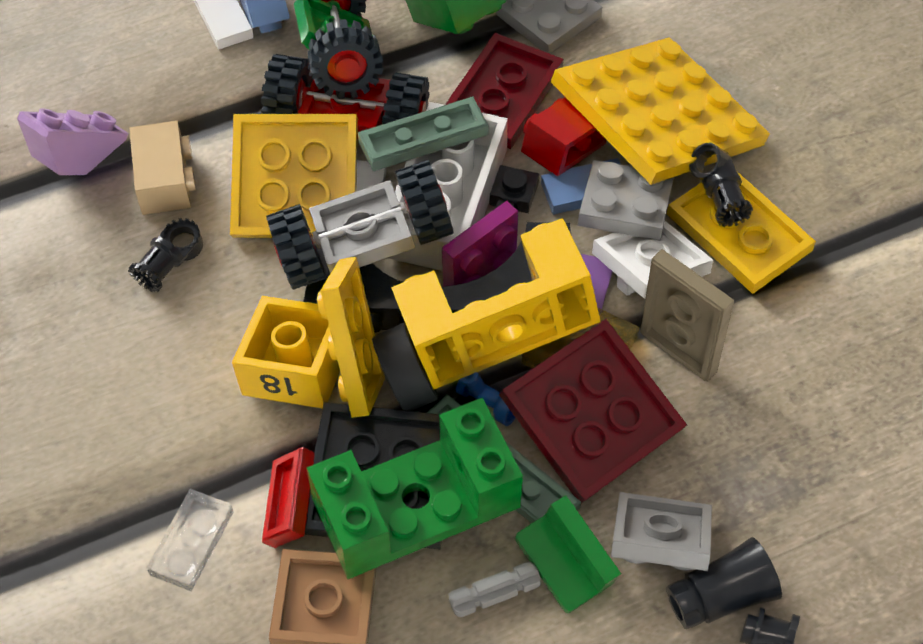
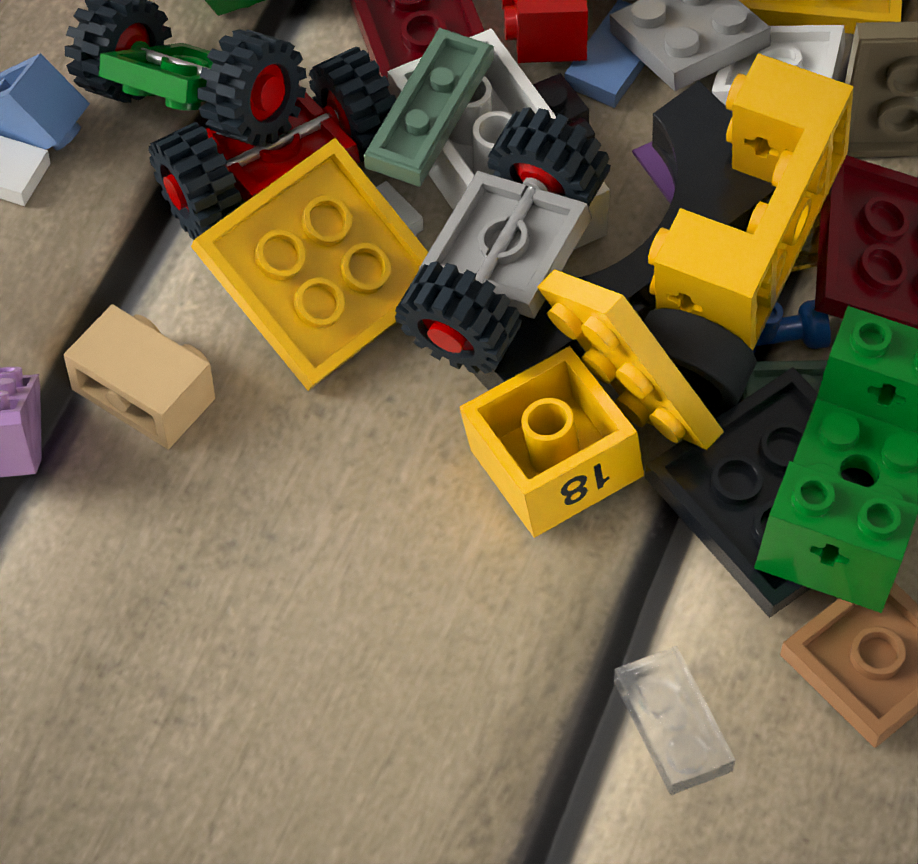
camera: 45 degrees left, 0 degrees up
(164, 255) = (268, 460): black connector -> none
(288, 498) = (720, 591): red tile -> none
(481, 246) = (628, 184): magenta plate -> none

